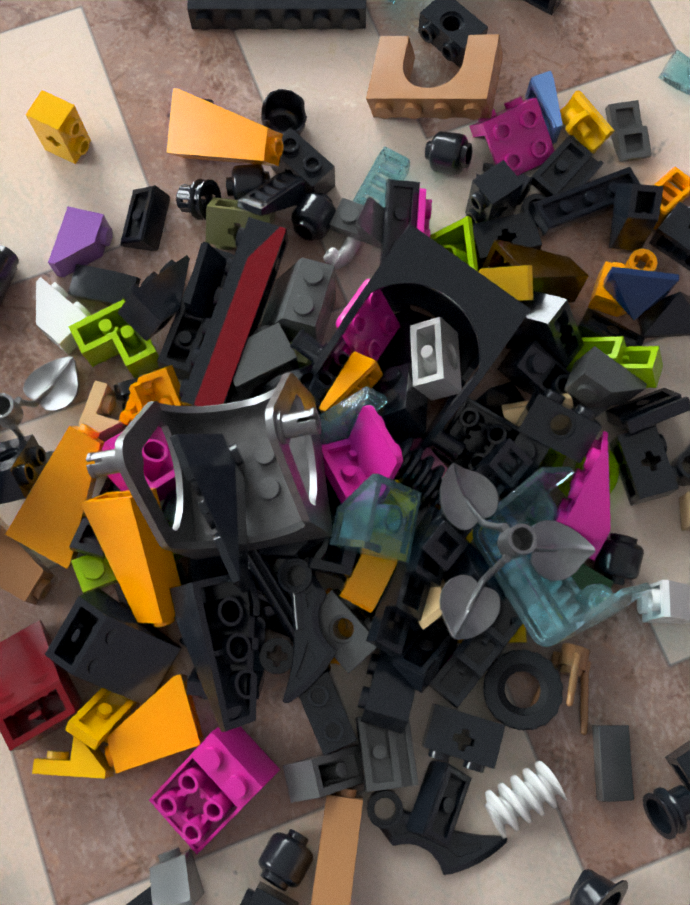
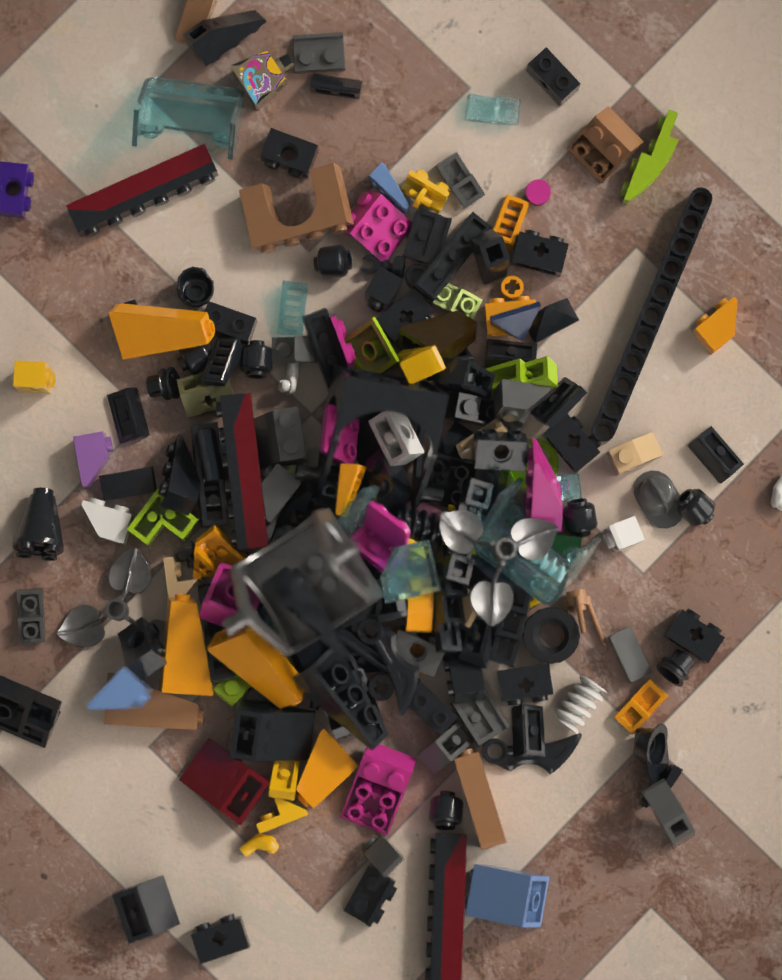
camera: 30 degrees left, 10 degrees up
(34, 785) = (259, 841): none -> yellow arm
(566, 244) = (458, 299): none -> yellowish green slope
(601, 839) = (641, 706): none -> light orange slope
(621, 515) = (569, 486): none -> clear light blue slope

